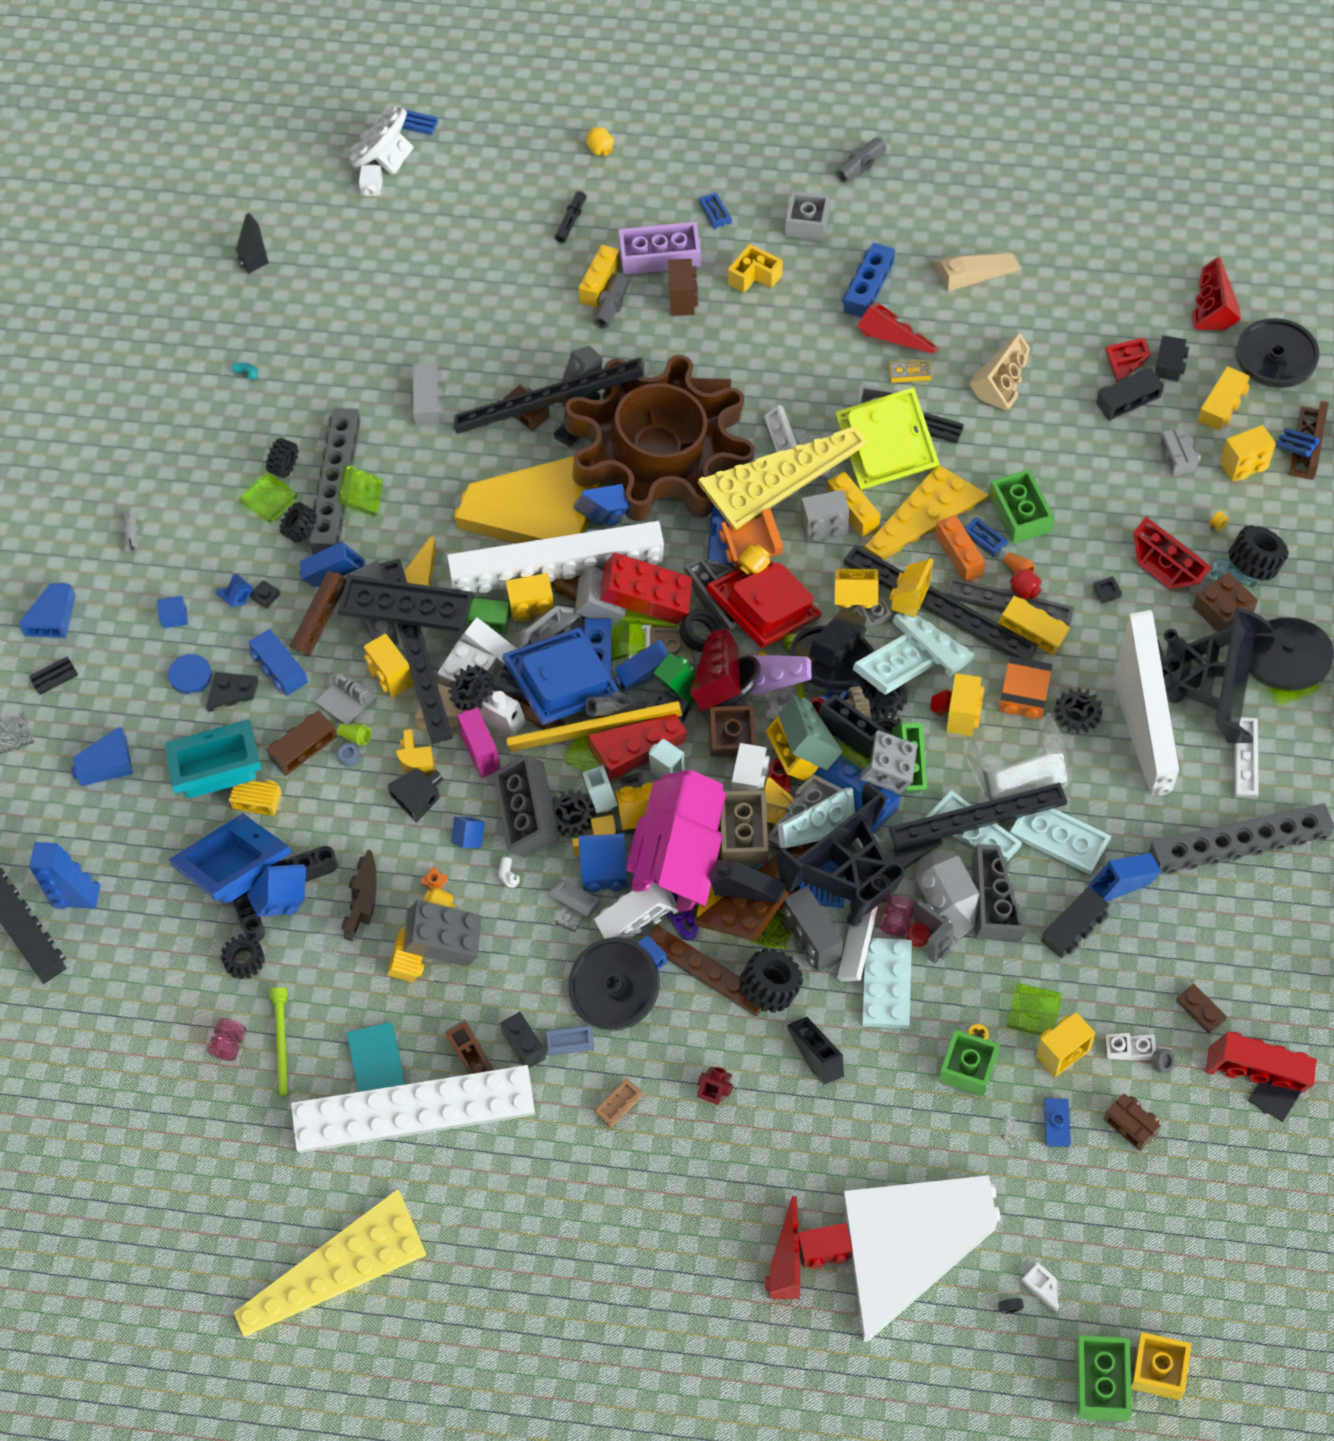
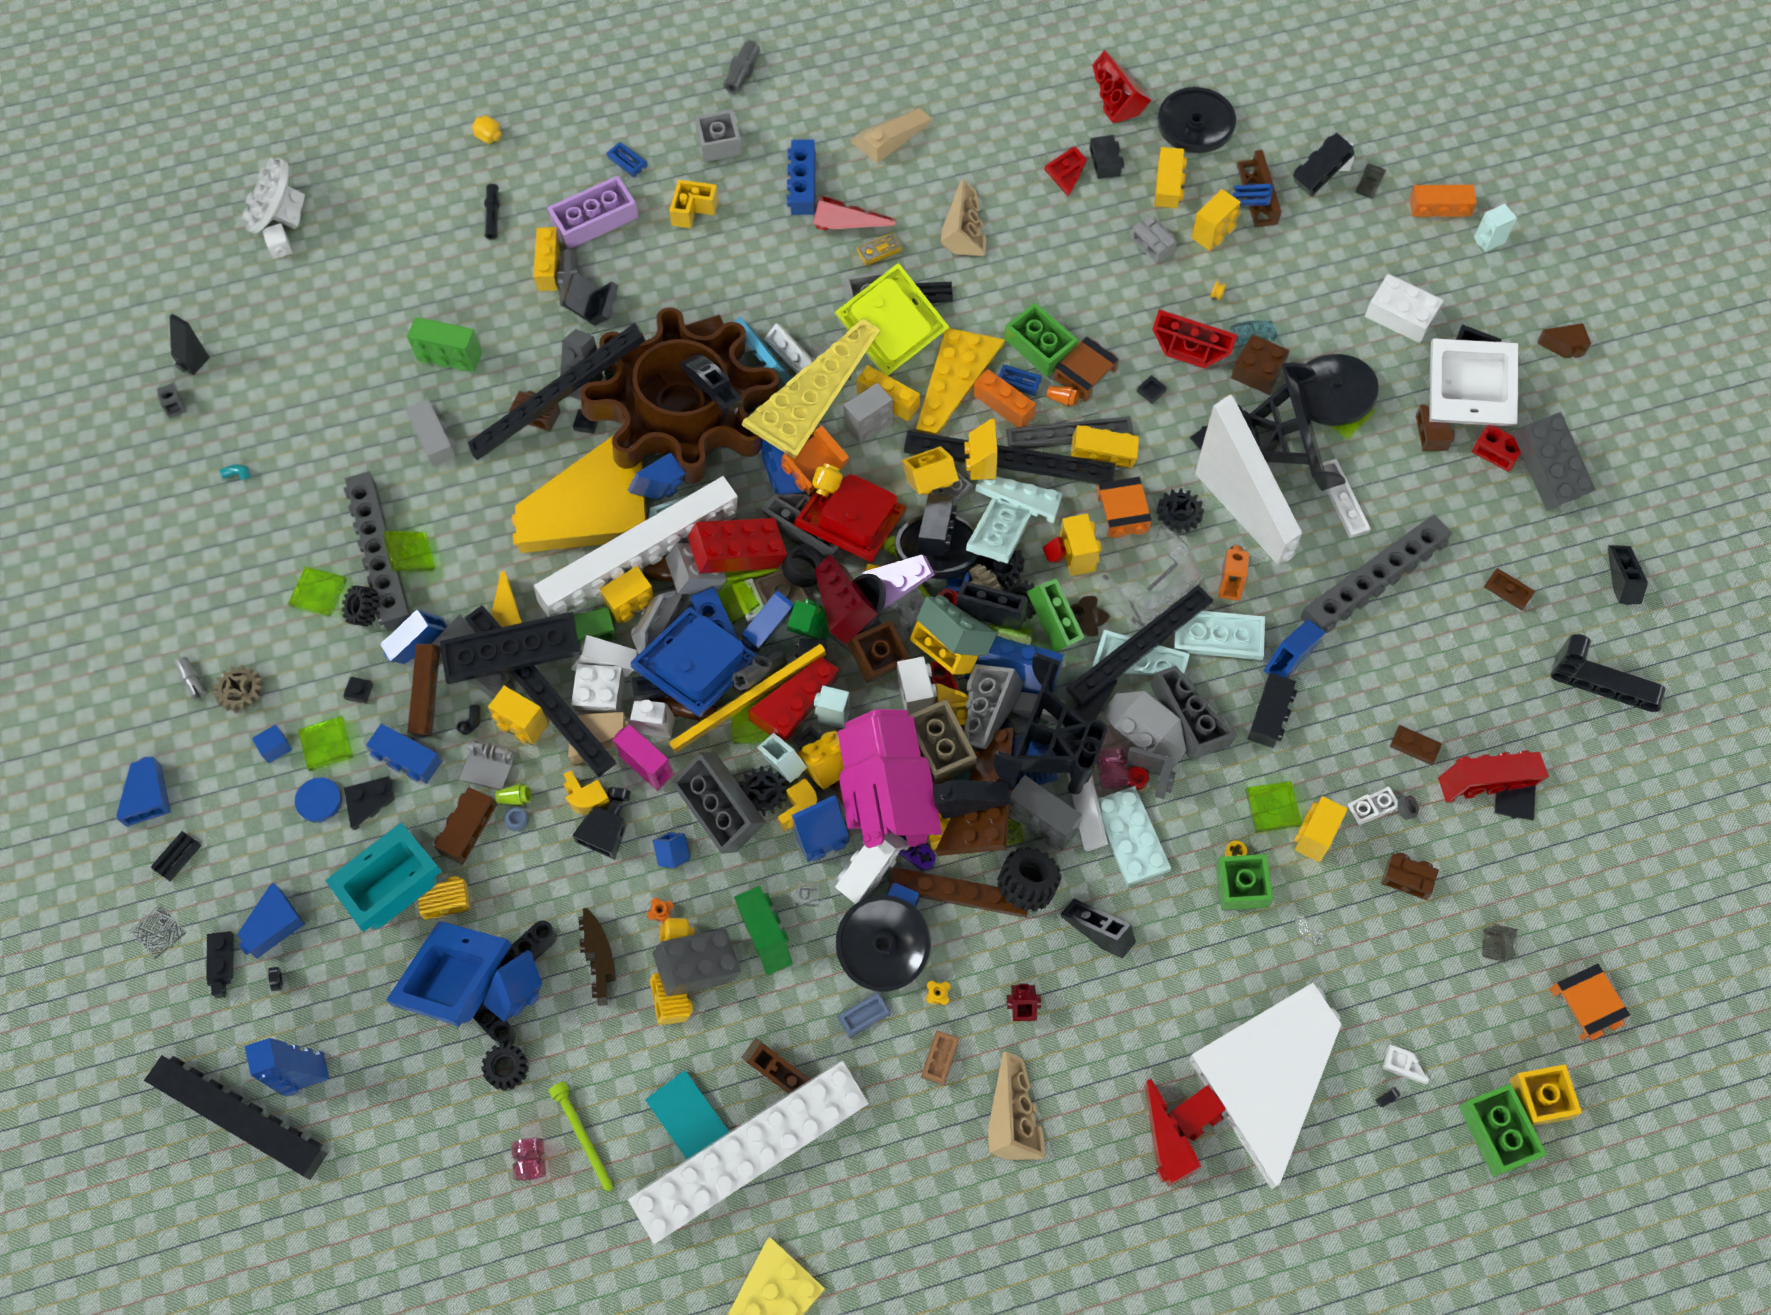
camera: 25 degrees left, 5 degrees up
(50, 776) = (219, 962): none -> black hinge
(88, 807) = (275, 978): none -> black tile
(155, 556) = (246, 680): none -> dark tan gear
(217, 629) = (325, 743): none -> clear neon green tile
(218, 288) = (170, 400): none -> dark grey leg
(237, 591) = (329, 698): blue panel -> none
(282, 457) = (314, 547): black tyre -> none
(348, 658) = (472, 722): none -> black arm
(418, 120) = (299, 165): blue tile -> none
(444, 767) = (618, 794): none -> black tile
(471, 688) = (613, 707): black gear -> none
(473, 321) = (444, 344): none -> bright green brick
(506, 875) = (726, 877): white arm -> none
(514, 931) = (764, 929): none -> green wedge
(523, 1040) = (821, 1035): black brick -> none
(575, 897) = (804, 873): light grey tile -> none
(620, 325) = (589, 300): none -> black bracket
(644, 1054) = (932, 997): none -> yellow plate
(657, 1182) = (1012, 1119): none -> tan wedge
(682, 287) = (632, 242): reddish brown brick -> none
(687, 434) = (712, 380): none -> black slope
(755, 427) = (763, 352): none -> medium azure wing
(817, 820) = (1008, 709): light aqua wing -> none
(891, 763) = (1047, 626): light grey bracket -> none
(946, 773) = (1090, 615): none -> dark brown plate
(1026, 584) = (1080, 411): red head -> none
(1052, 546) = (1085, 367): none -> dark orange panel
(1057, 1122) = (1343, 904): blue plate -> none
(1104, 777) = (1234, 565): none -> orange torso
(1129, 393) = (1085, 201): black brick -> none
(1189, 1215) = (1499, 942): none -> clear smoke panel
(1251, 1304) = (1592, 1001): none -> orange panel
(1258, 552) = (1268, 307): black tyre -> none

